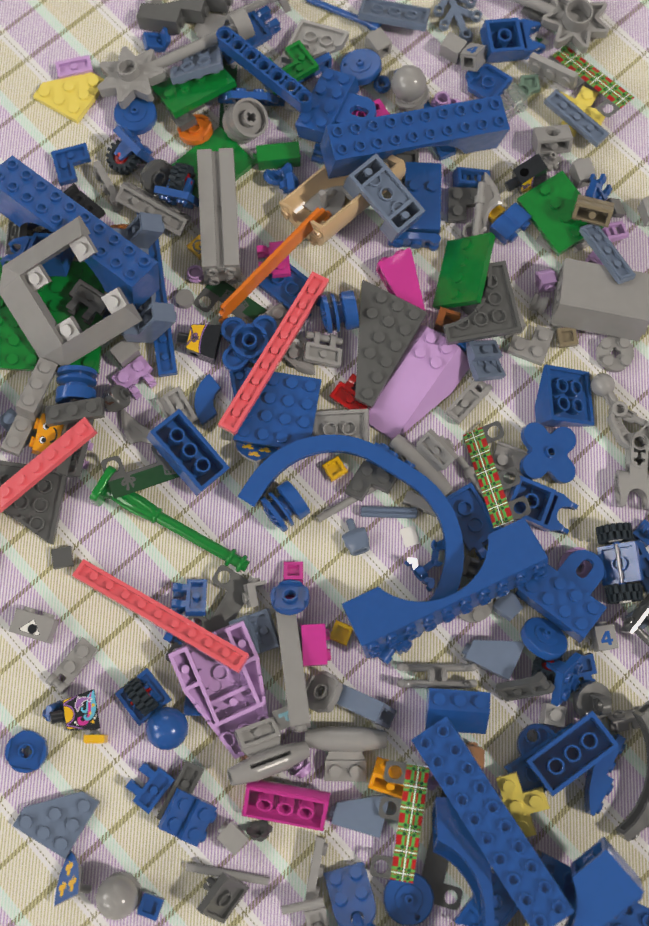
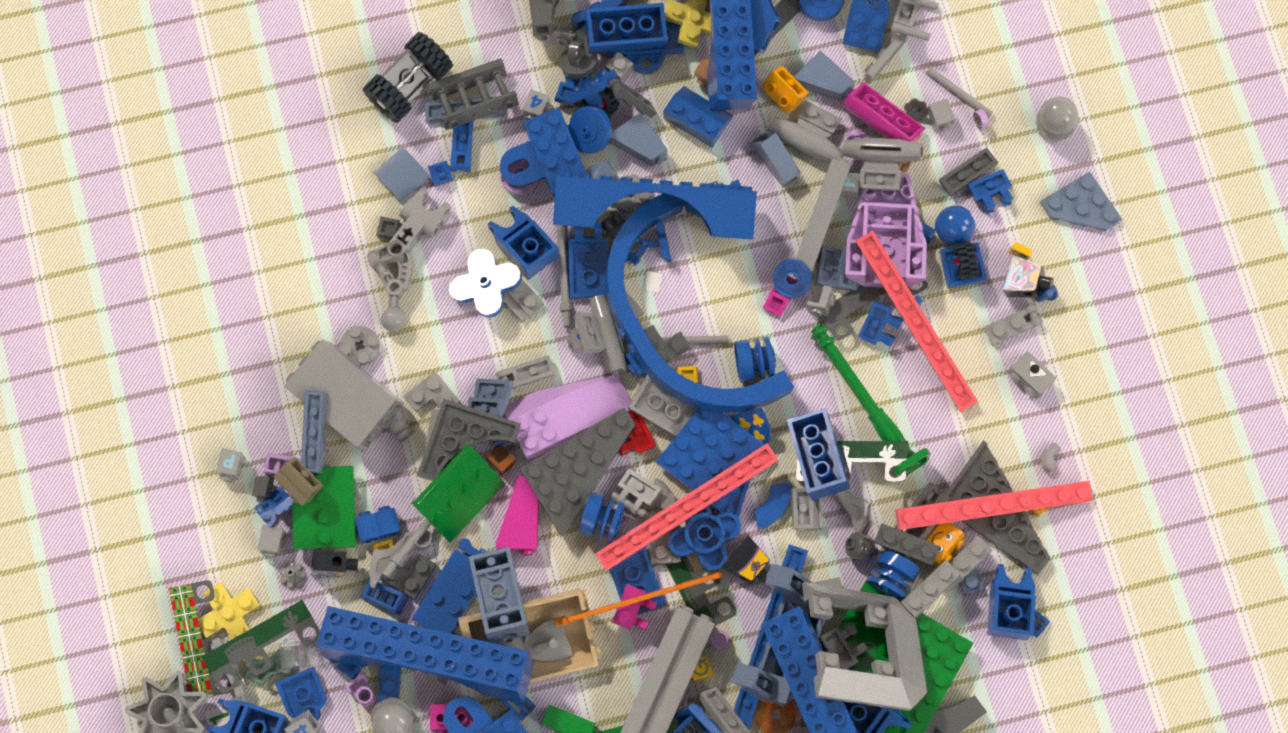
camera: 150 degrees left, 0 degrees up
(17, 759) = (1082, 262): blue plate -> none
(62, 557) = (979, 425): dark grey tile -> none
(69, 881) = (1092, 151): blue shield -> none
(132, 374) = (831, 568): lavender plate -> none
(150, 906) = (1034, 98): blue tile -> none
(184, 298) = (743, 620): light grey tile -> none
(188, 817) = (971, 147): blue plate -> none
(193, 855) = (980, 119): none -> lavender tile
(221, 897) = (972, 74): dark grey tile -> none
(274, 177) = (580, 702): blue hair -> none
(291, 183) = (572, 684): blue tile -> none
(314, 645) = (791, 229): dark pink brick -> none
(331, 693) = (798, 180): light grey plate -> none
(341, 633) = (763, 230): yellow tile -> none
(356, 539) = (704, 301): sand blue piece -> none
(389, 512) = (660, 311): sand blue axle -> none
(409, 817) = (788, 50): piece -> none
(436, 675) = (698, 152): light grey piece -> none
(490, 480) = (554, 286): piece -> none
(546, 89) = (255, 639): none -> piece
(546, 280) = (379, 449): lavender plate -> none
(552, 139) = (267, 587): light grey brick -> none
(564, 398) = (436, 325): blue slope -> none
(566, 337) = (396, 383): dark tan plate -> none
(576, 118) = (239, 595): sand blue tile -> none
(620, 563) = (483, 155): plate -> none

